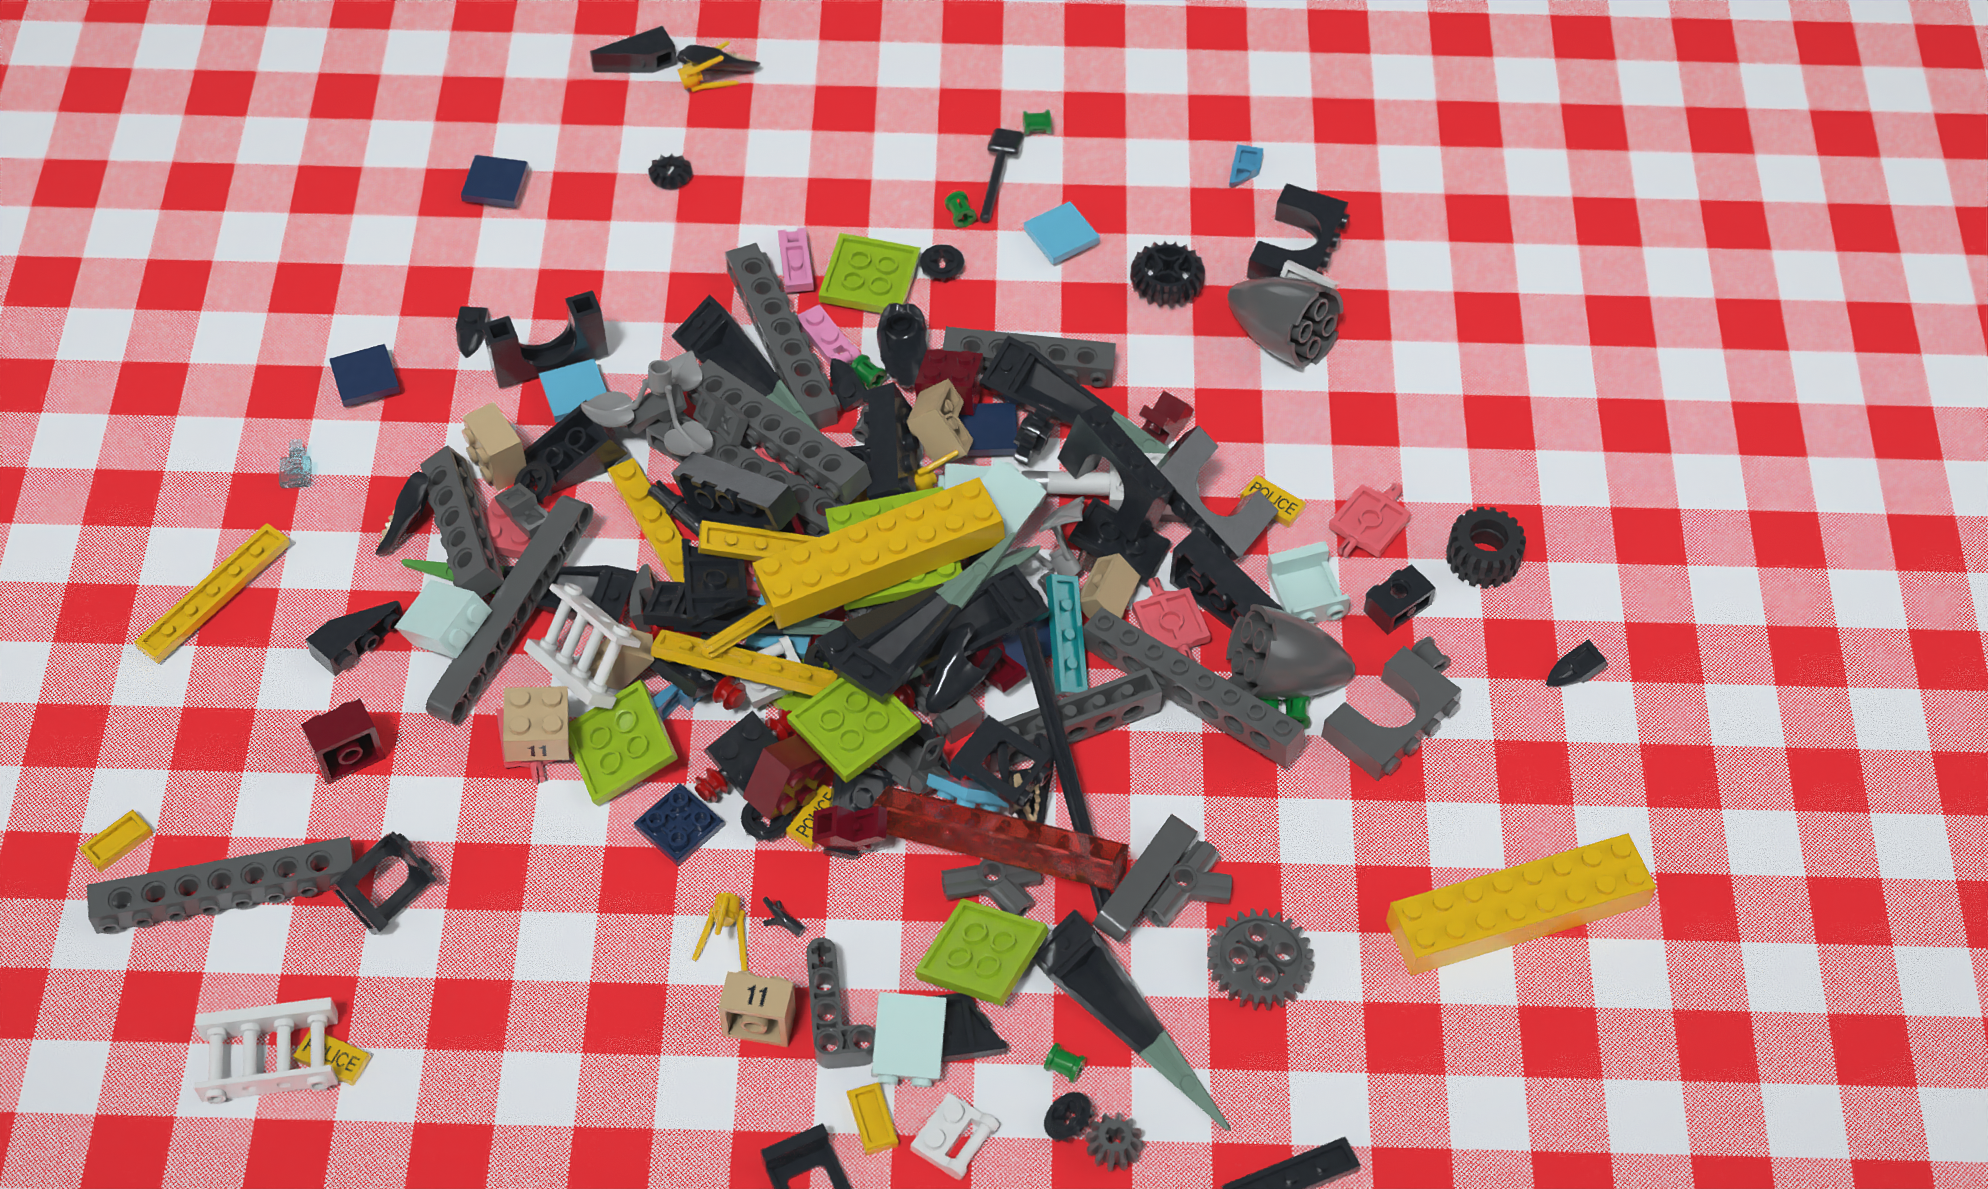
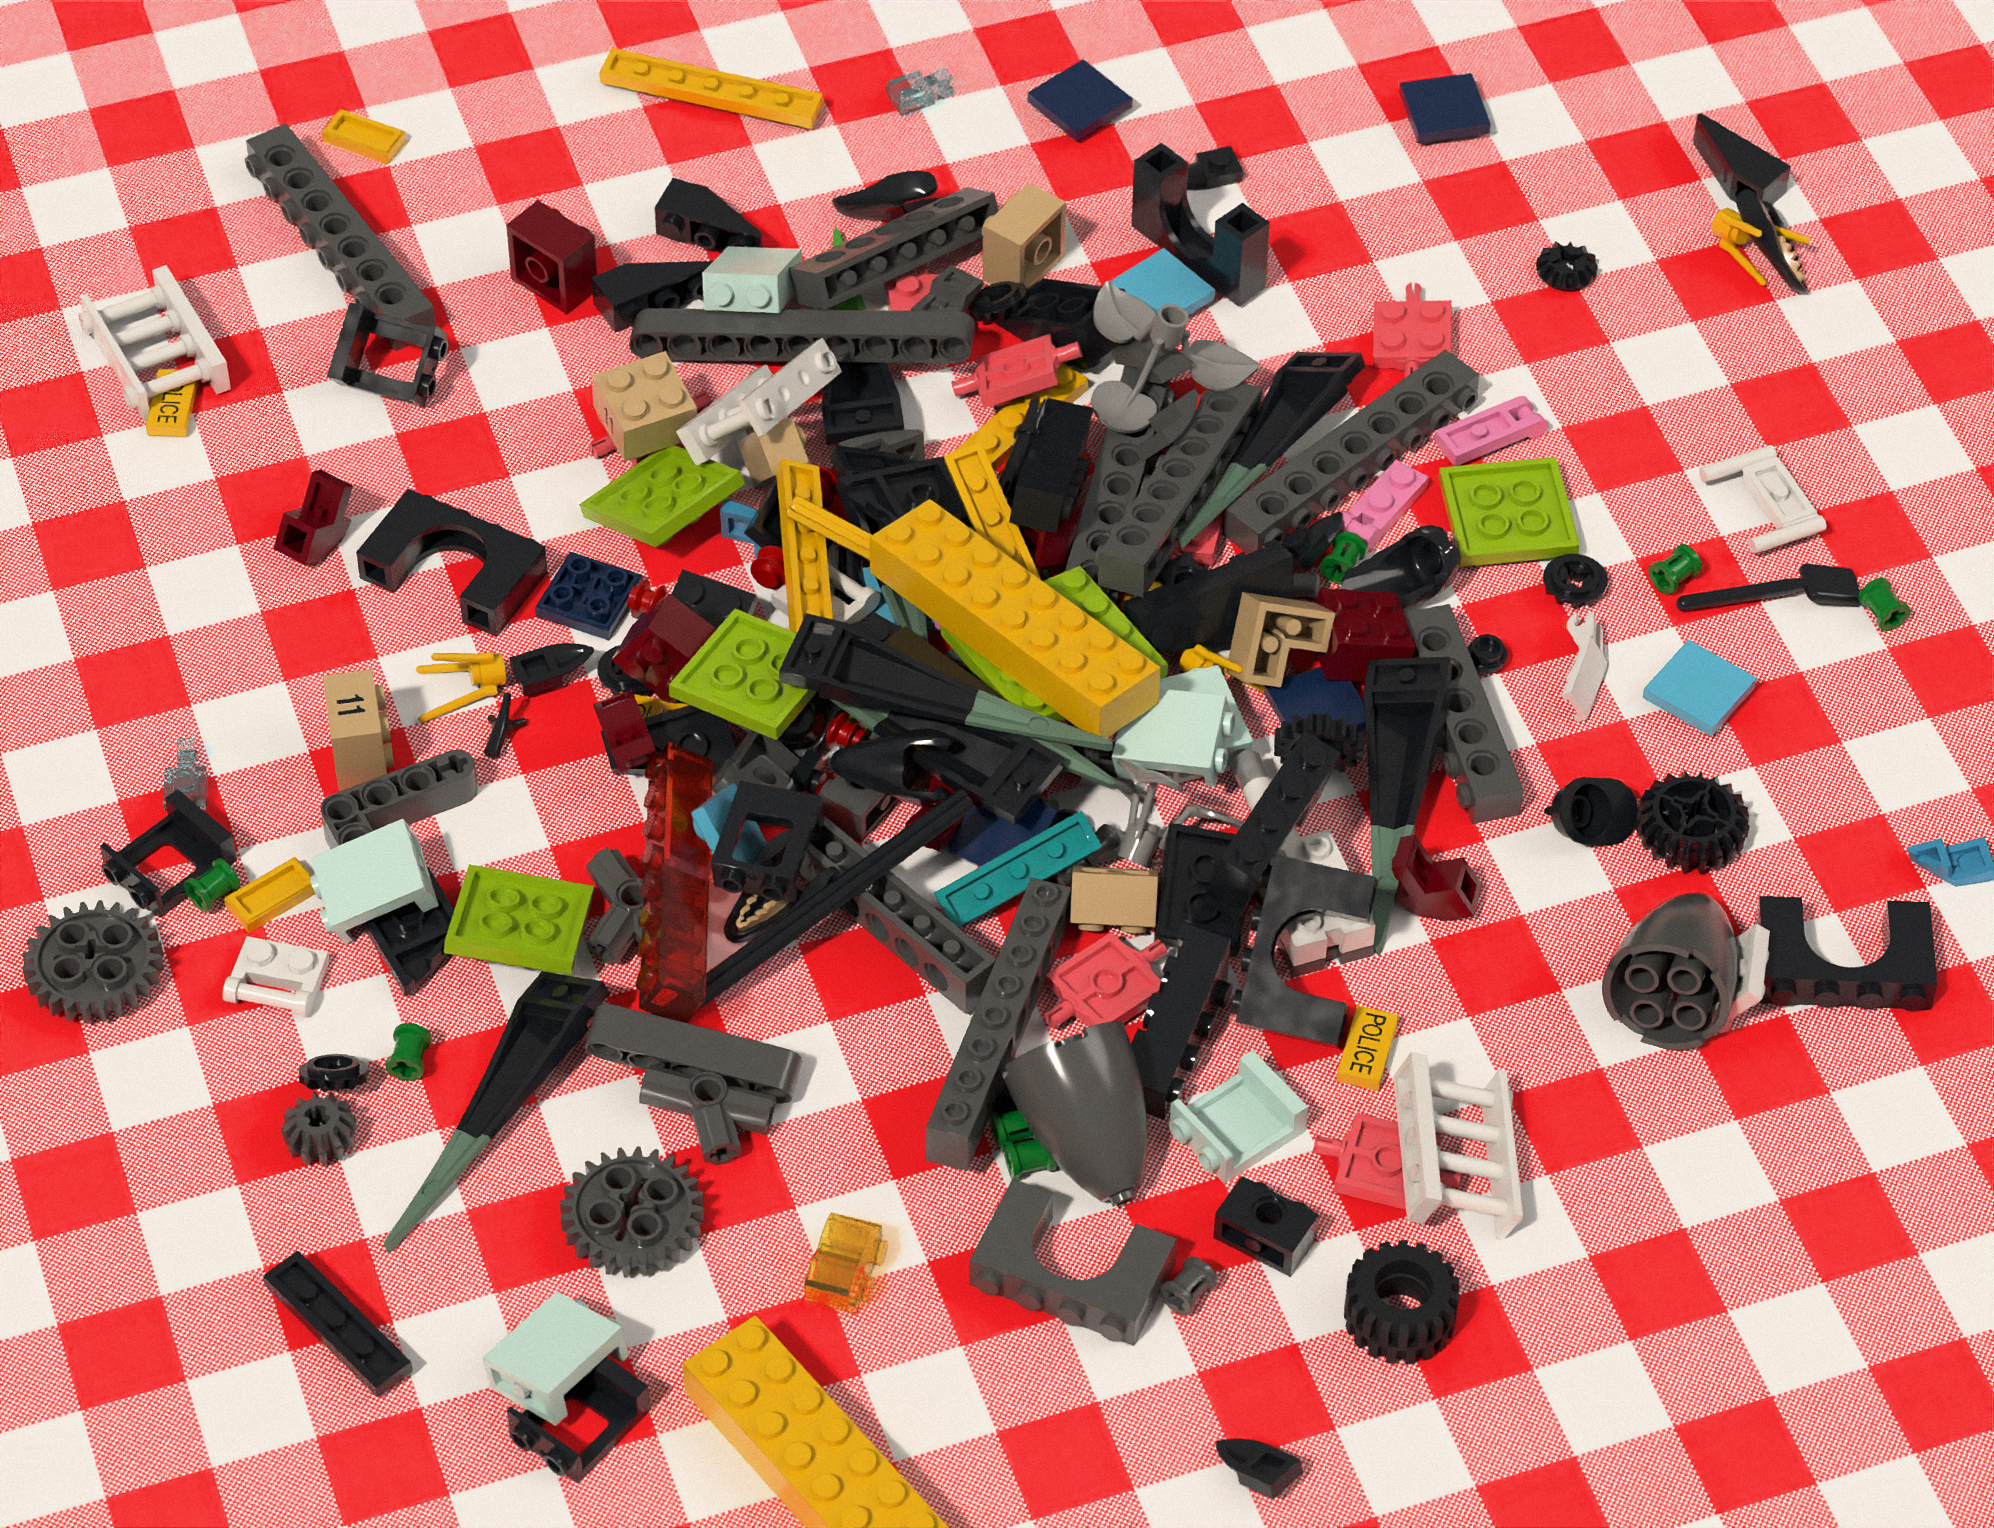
camera: 70 degrees right, 5 degrees down
(398, 699) = (640, 286): none -> black slope
(524, 981) = (320, 524): none -> dark red brick
(614, 490) = (1017, 371): none -> coral plate
(627, 864) = (425, 526): none -> black arch
(687, 270) = (1410, 331): none -> coral plate
(737, 1152) = (187, 776): none -> clear light blue plate
(741, 867) = (546, 666): none -> black plate
(852, 1155) = (212, 885): none -> green bush
(924, 139) = (1775, 493): none -> white plate
(982, 322) = (1488, 653): none -> black plate
(1000, 273) = (1589, 666): none -> white arm
(1139, 321) = (1594, 811): none -> black piece
(1348, 843) = (844, 1263): none -> clear yellow brick
(1376, 1039) = (552, 1354): none -> light aqua panel
(1377, 490) = (1423, 1158): none -> white fence
(1405, 1020) = (606, 1391): none -> black window

